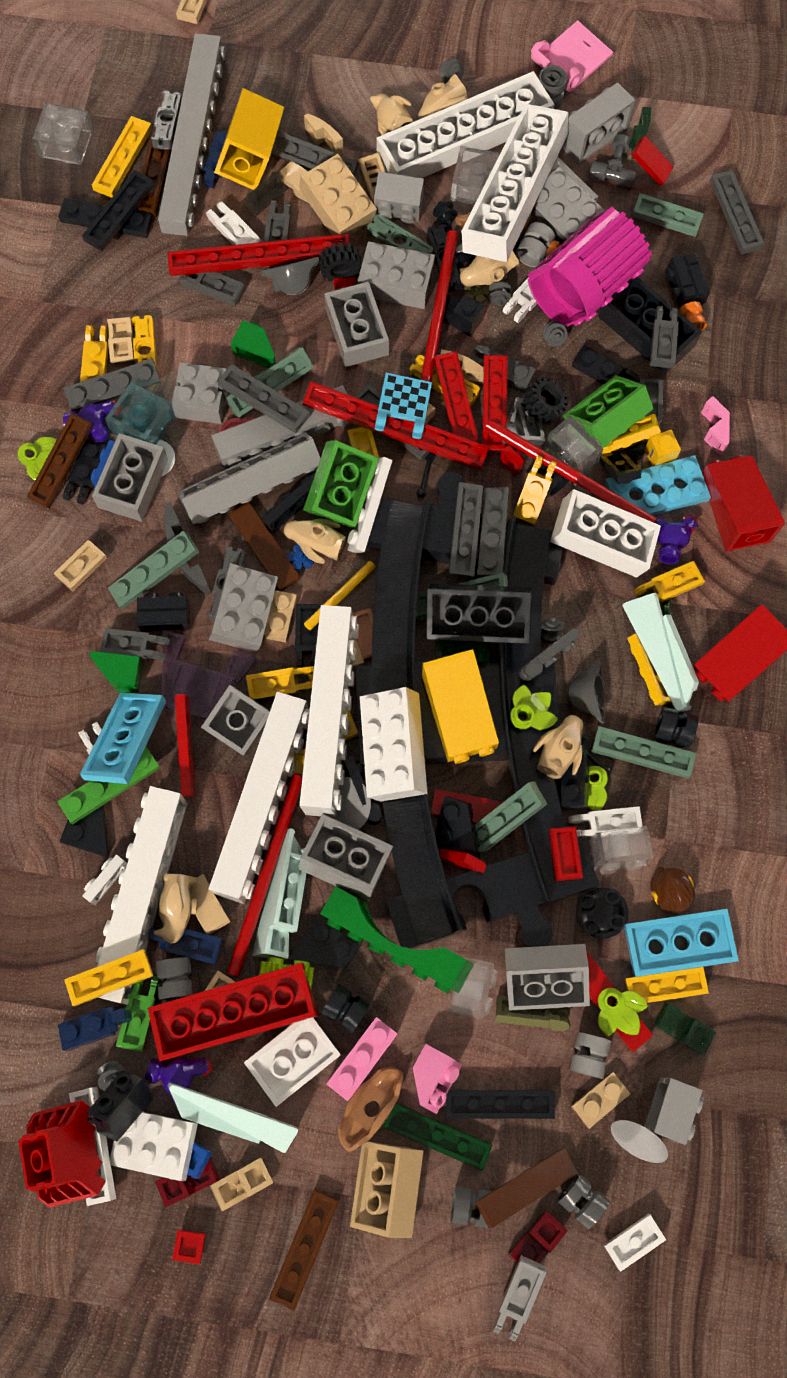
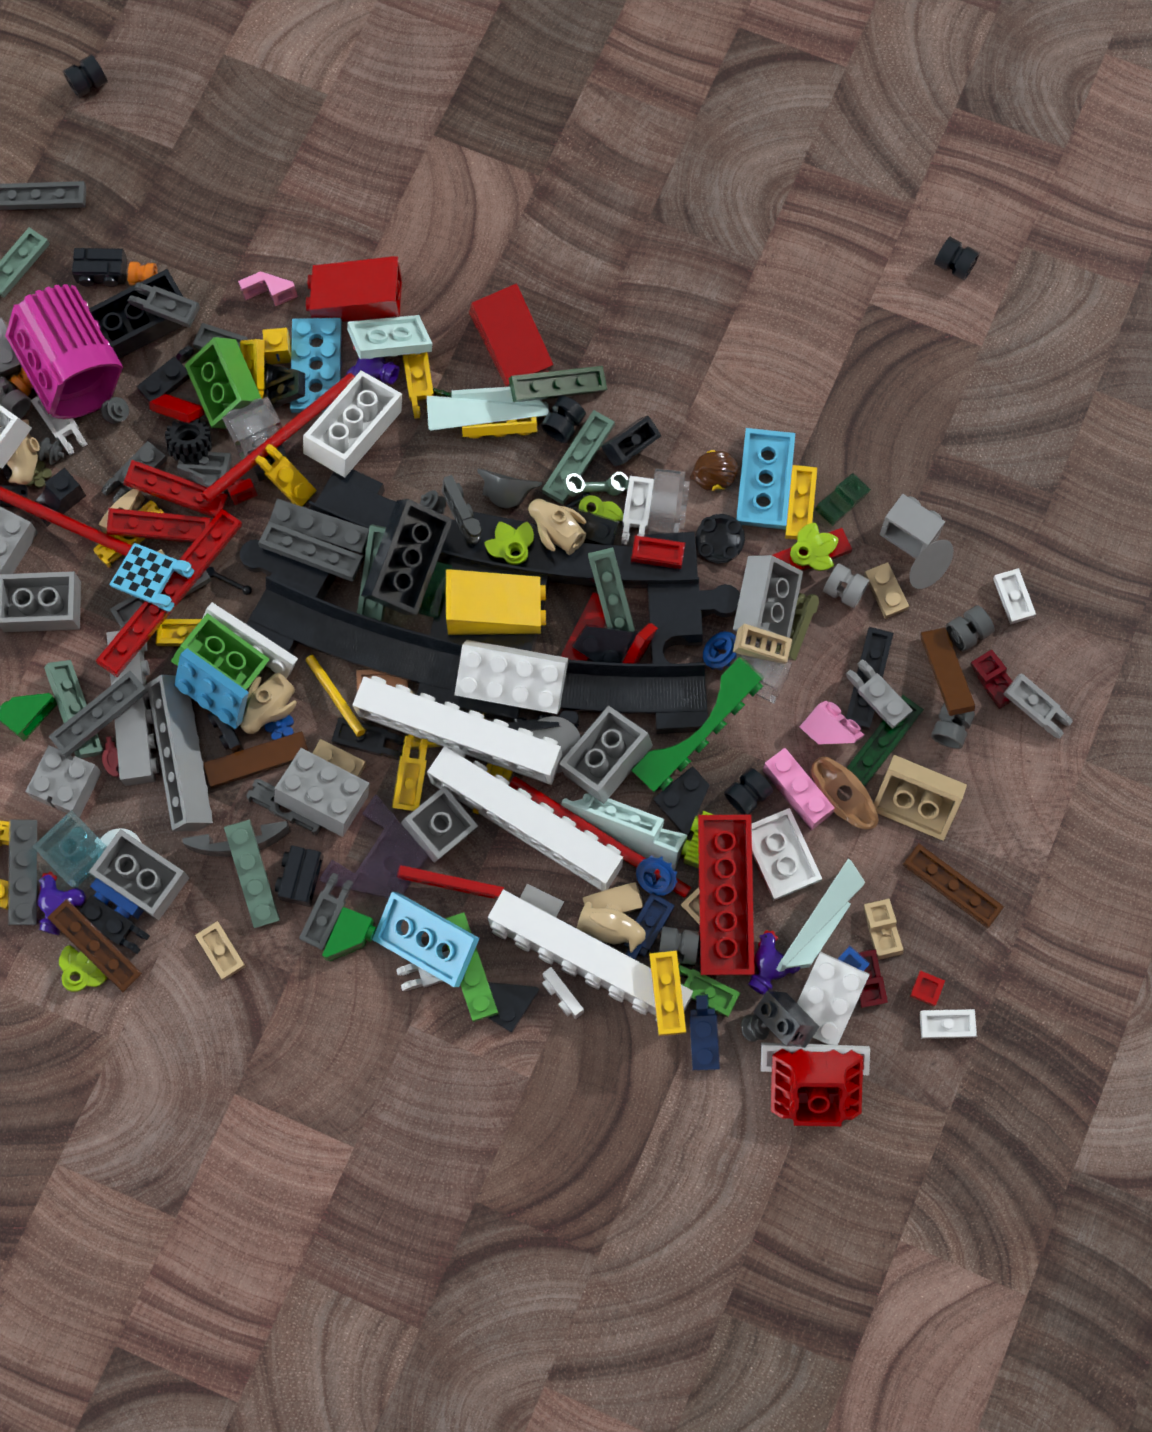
camera: 70 degrees left, 0 degrees up
(157, 1278) = (948, 1024): none -> white plate
(193, 836) = (542, 900): none -> white sticker
(236, 929) = (646, 876): none -> blue gear
(306, 481) = (211, 688): none -> dark azure plate
(478, 936) = (724, 641): none -> blue gear
(481, 1121) = (880, 695): none -> light grey hinge
(499, 958) = (760, 652): none -> tan slope
(572, 382) = (176, 408): none -> red tile
(626, 795) = (613, 485): none -> sand green bar
(675, 797) = (631, 441): none -> black brick
(704, 543) = (389, 337): none -> light aqua plate
(710, 710) = (557, 383): none -> plate

